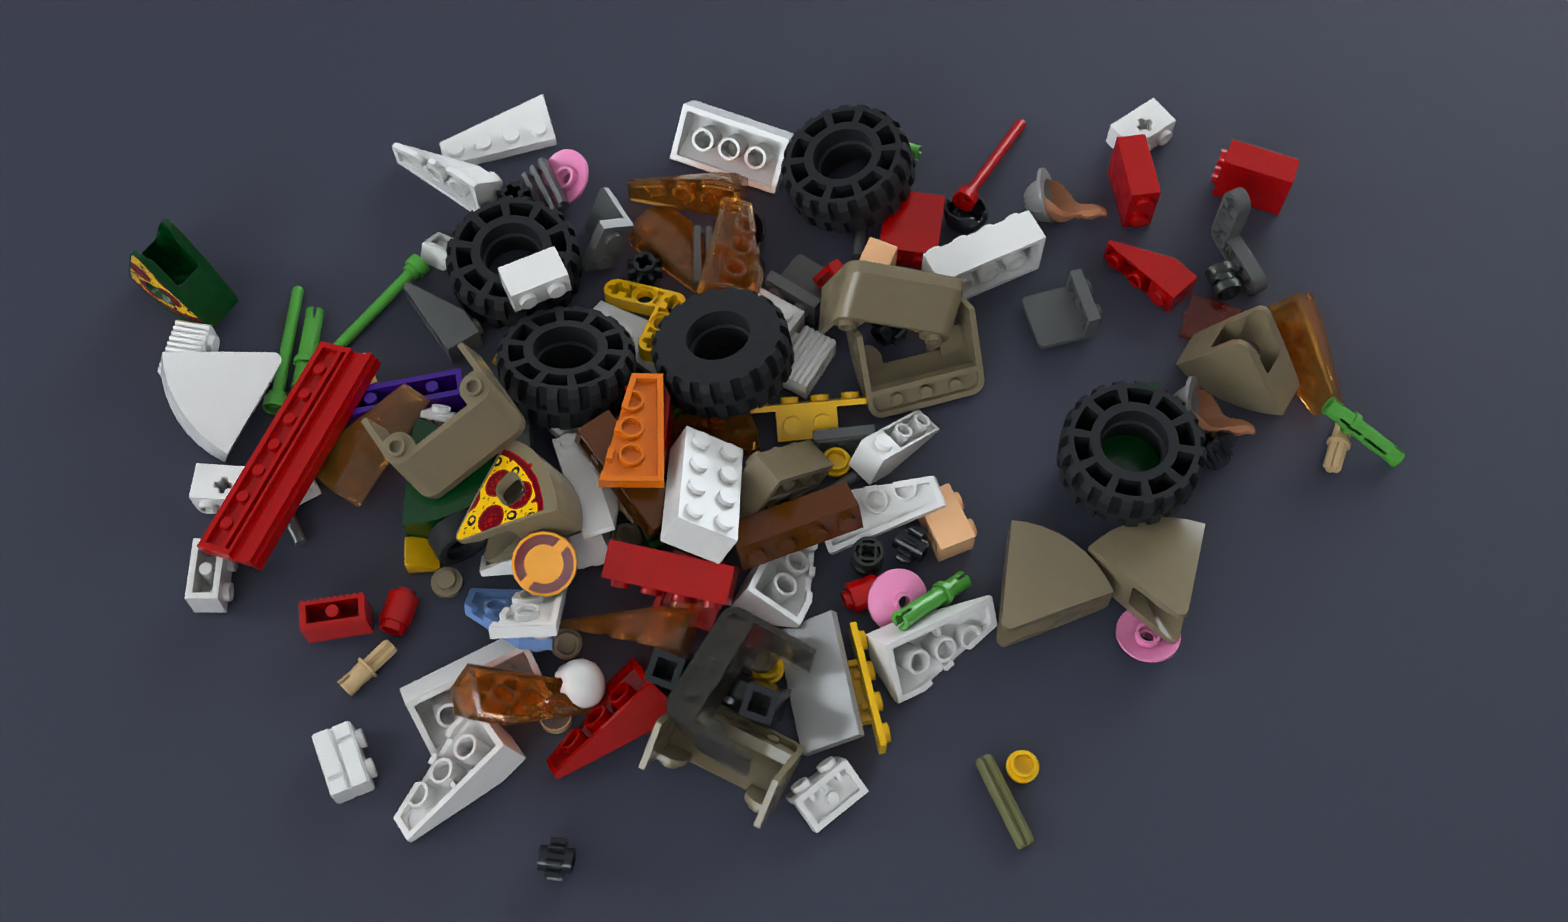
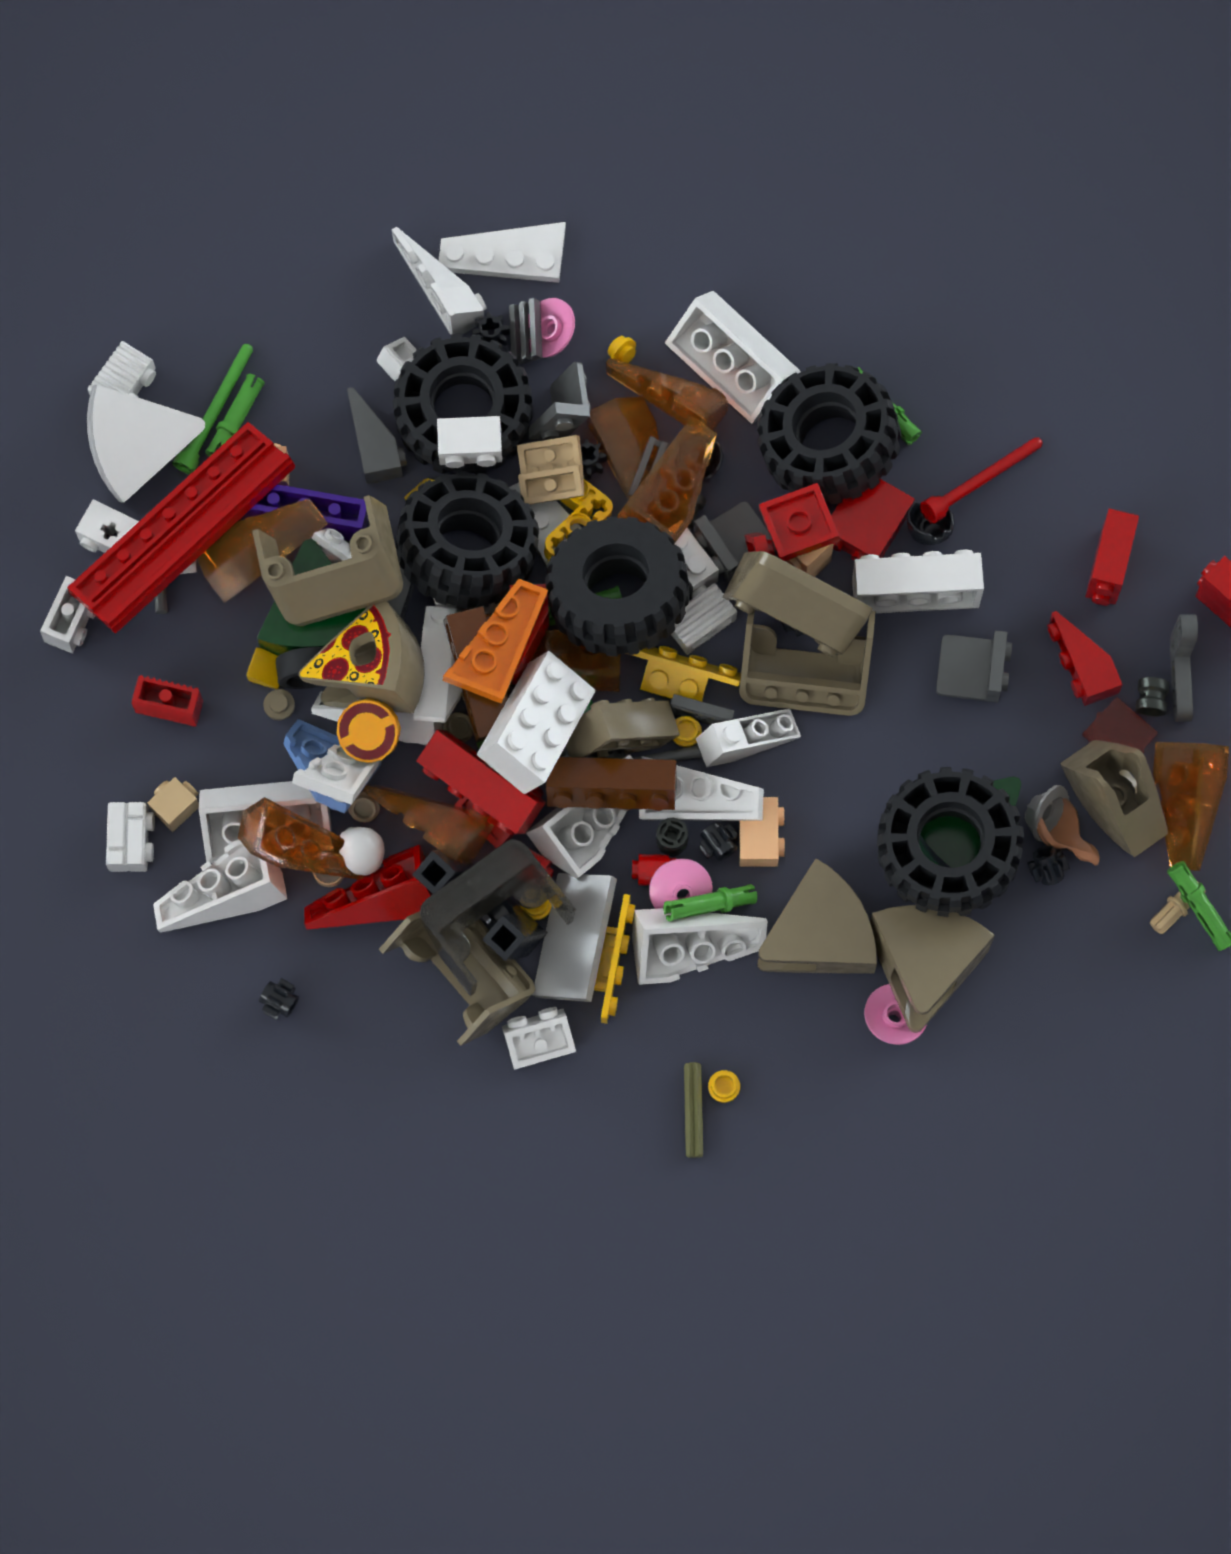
camera: 25 degrees right, 10 degrees up
(181, 278) = (141, 304): dark green piece -> none
(366, 668) = (179, 757): tan axle -> none
(378, 711) = (174, 802): none -> tan brick
(398, 611) = (225, 715): red brick -> none
(414, 268) = (364, 371): bright green piece -> none
(617, 284) = (551, 470): none -> tan slope
(635, 170) = (622, 349): none -> yellow plate
(862, 236) = (799, 522): none -> red plate
(1052, 202) = (1024, 546): piece -> none
(1148, 120) = (1163, 490): white brick -> none

